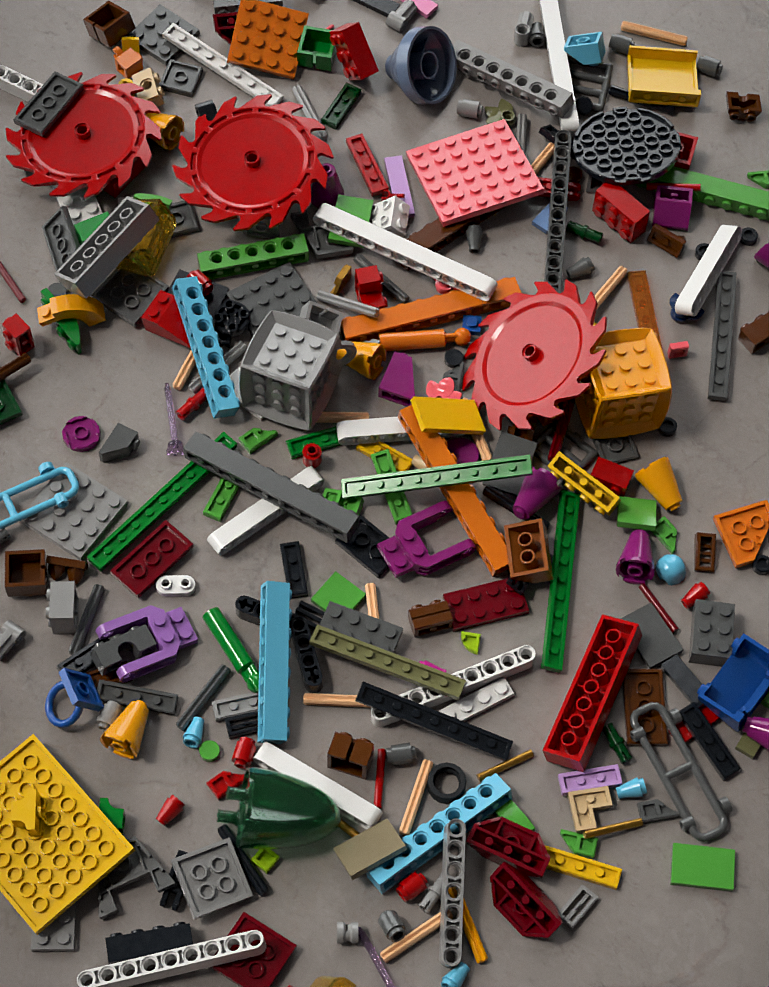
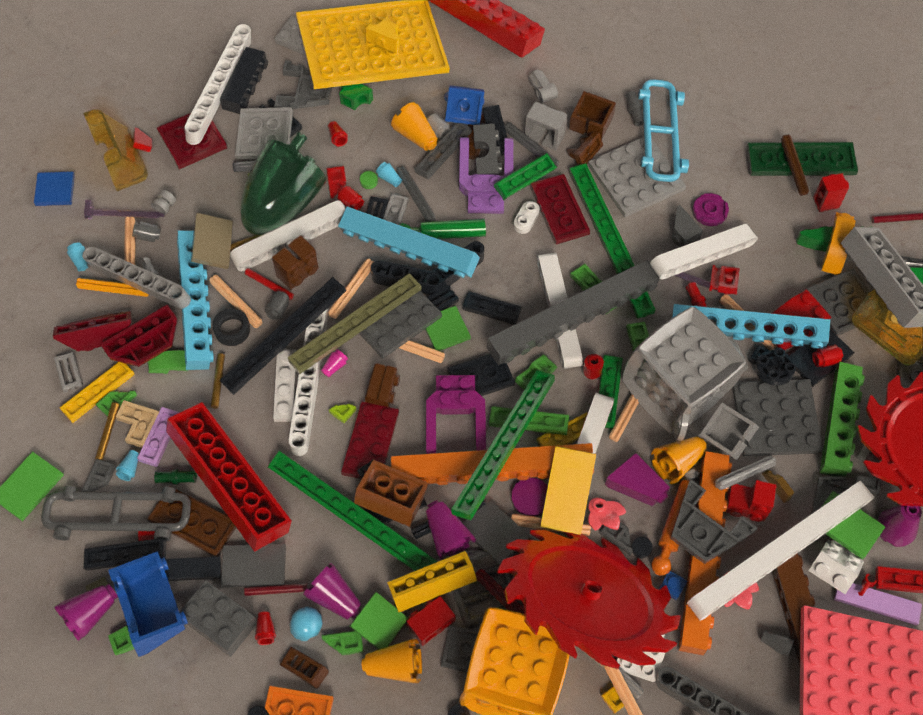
camera: 120 degrees right, 0 degrees up
(136, 598) = (525, 176): none -> green tile
(144, 410) = (703, 251): none -> white beam
(160, 389) = (724, 279): none -> red plate
(392, 288) = (778, 523): dark grey axle -> none
(411, 886) = (166, 260): red brick -> none
(425, 310) = (700, 533): none -> dark grey wing

